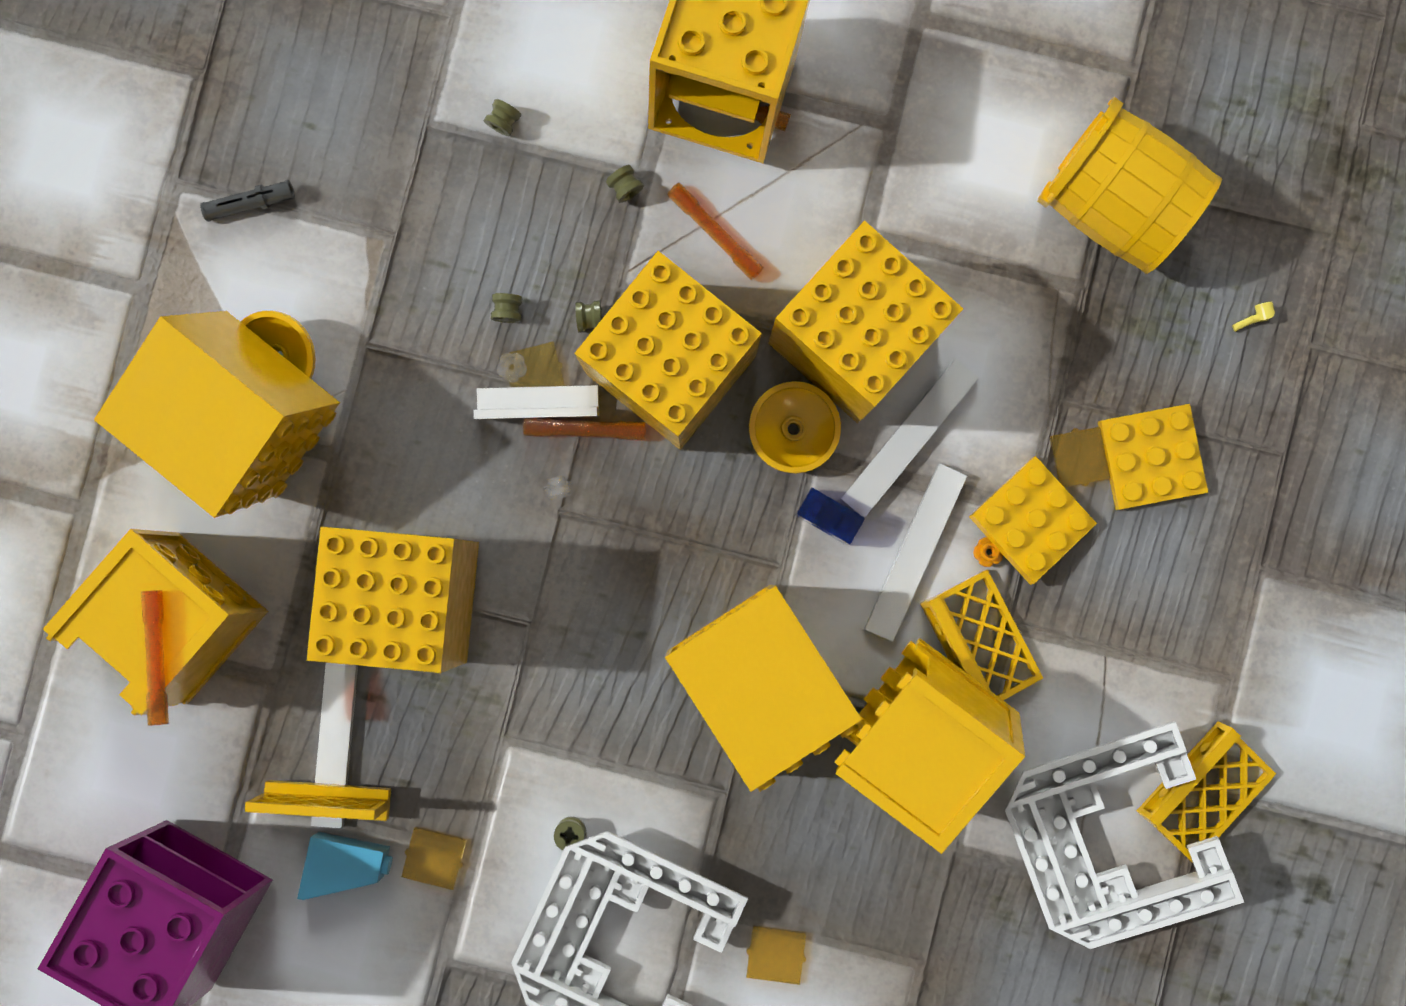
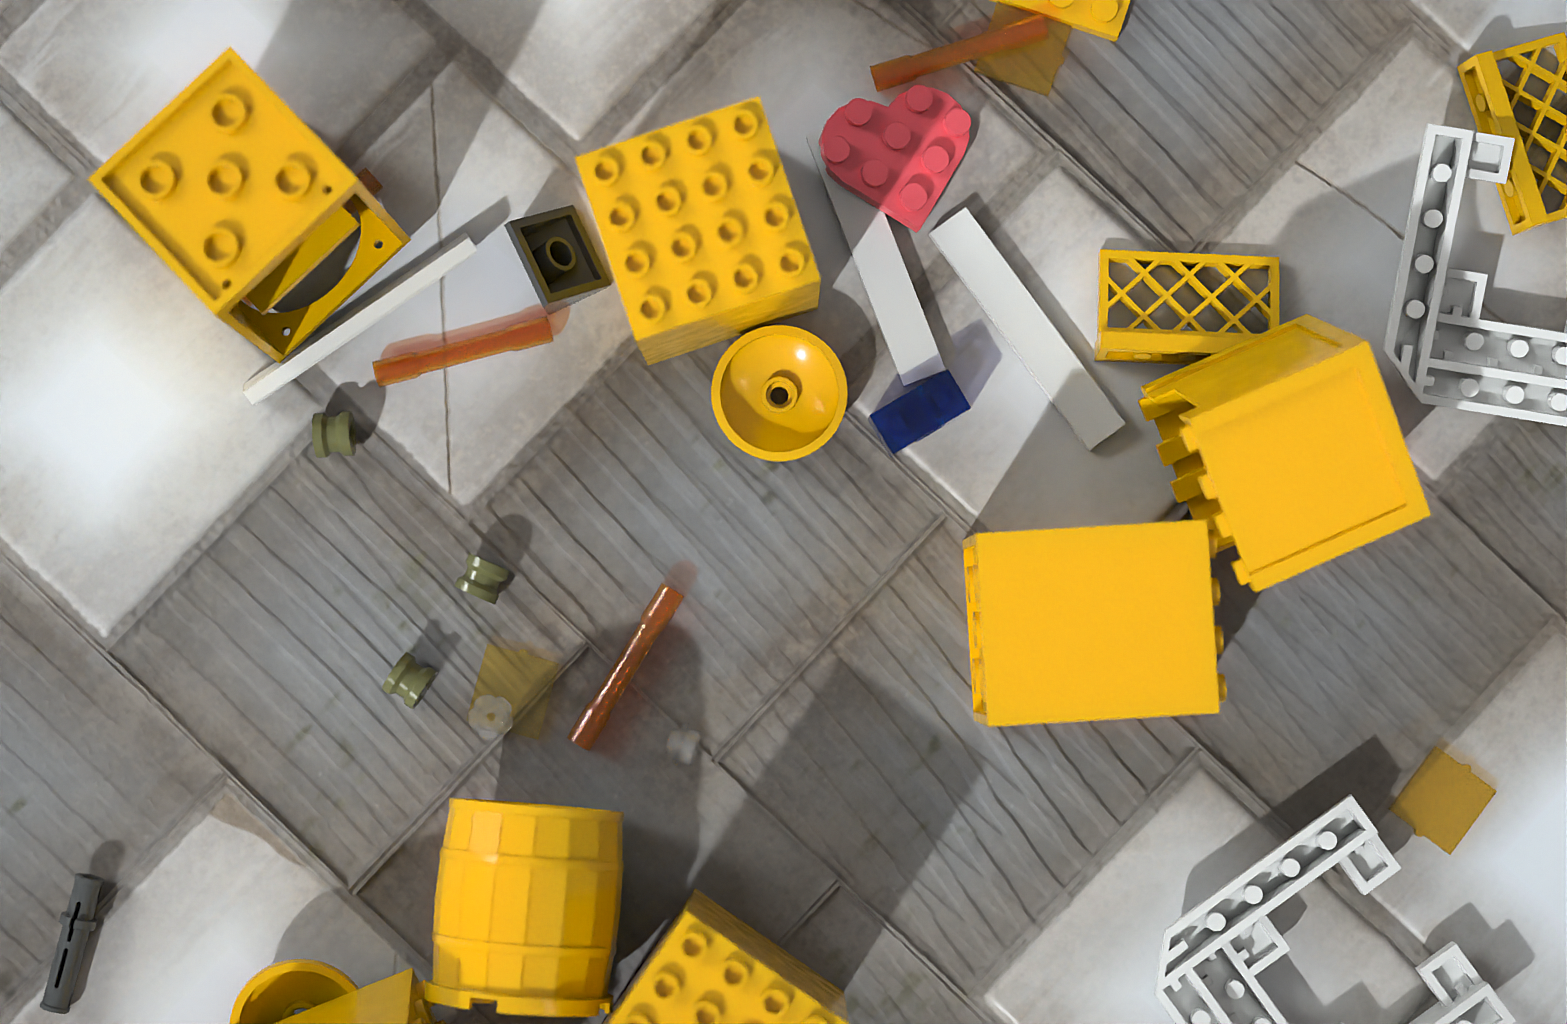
camera: 60 degrees left, 0 degrees up
(409, 448) = (527, 908): none -> yellow piece
(502, 117) = (154, 545): olive wheel -> none
(537, 402) = (556, 709): white fence -> none
(570, 827) = (1133, 974): olive wheel -> none
(669, 350) = (593, 499): yellow container -> none
(700, 160) = (360, 318): none -> white tile
(800, 253) = (558, 257): none -> dark grey slope
(975, 417) = (898, 152): none -> coral plate
(981, 555) = (1066, 235): light orange plate -> none
(1032, 520) = (1070, 155): yellow plate -> none
(1083, 445) = (1008, 37): none -> clear orange piece

